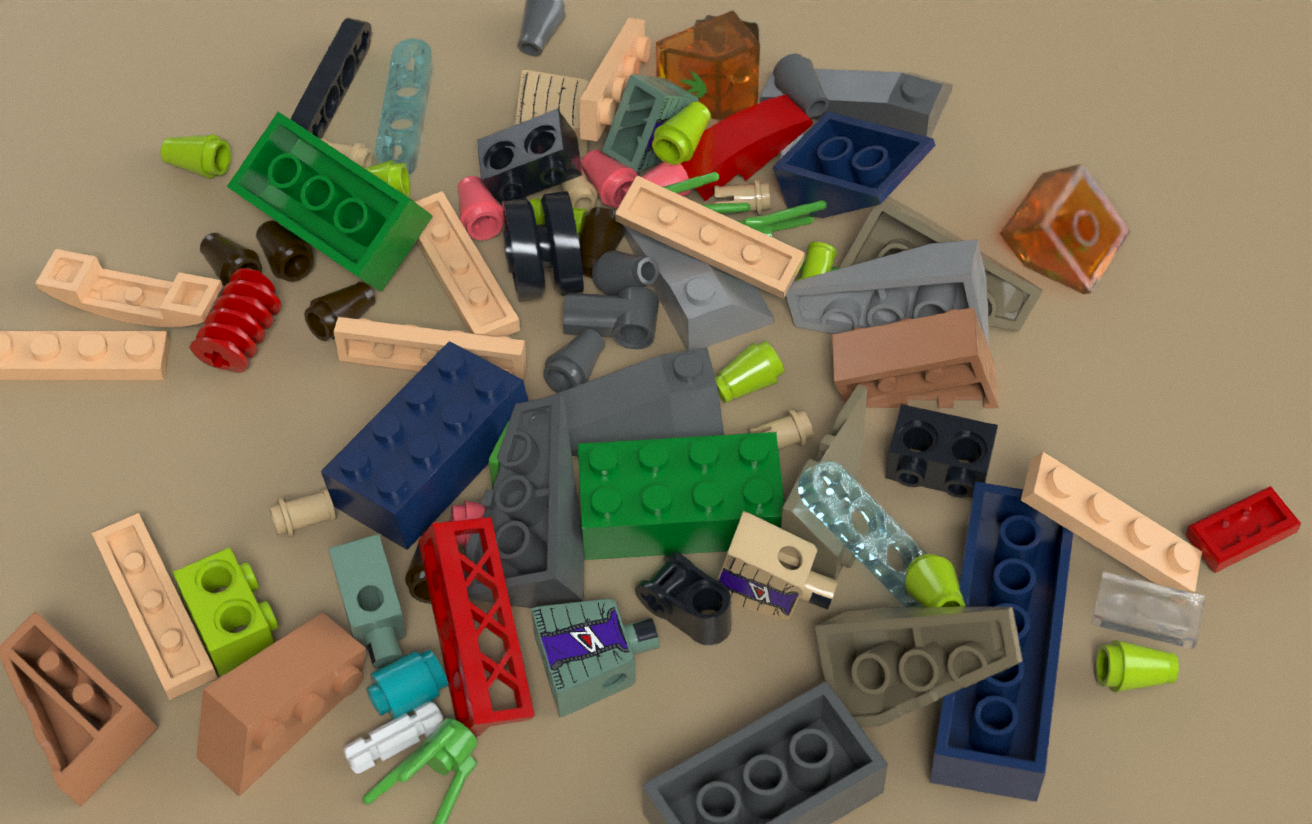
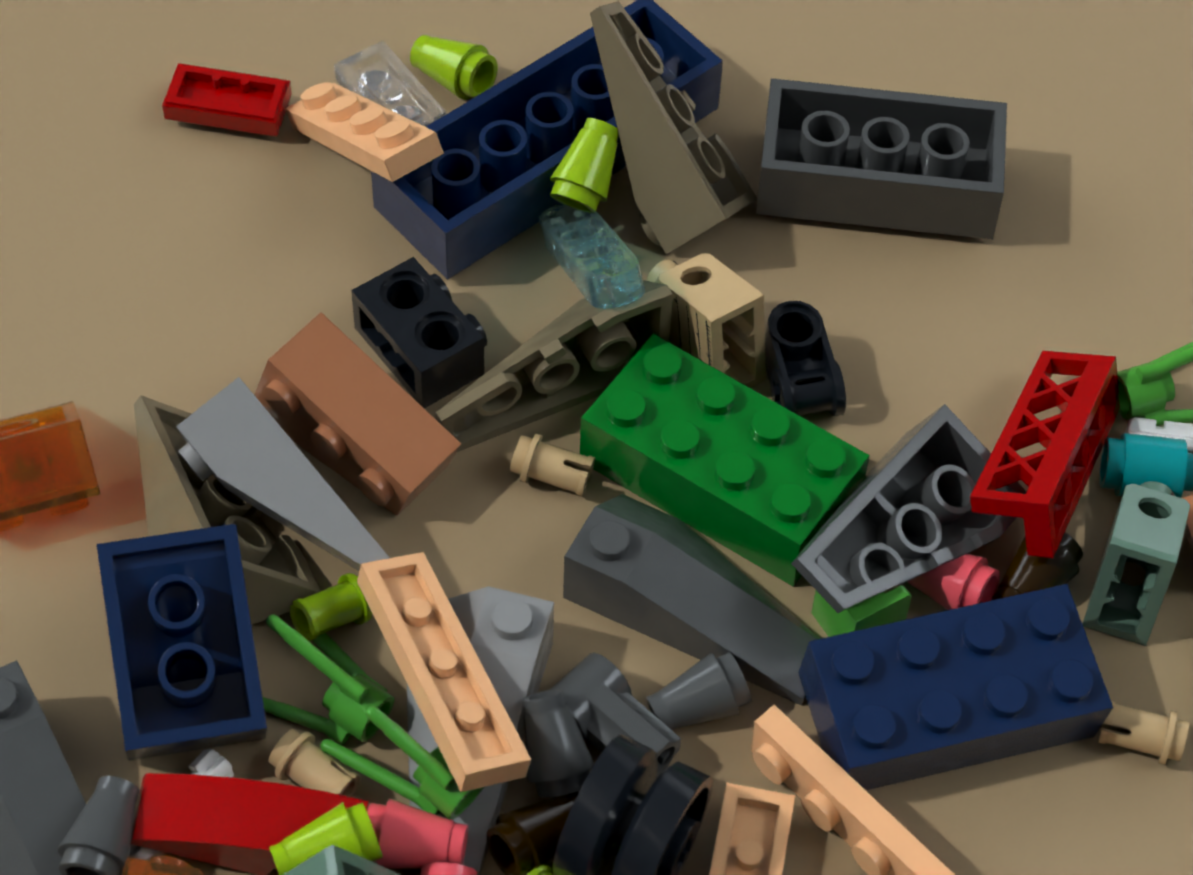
camera: 145 degrees left, 0 degrees up
(589, 650) = (935, 368): sand green torso -> none
(749, 372) = (520, 548): lime cone -> none

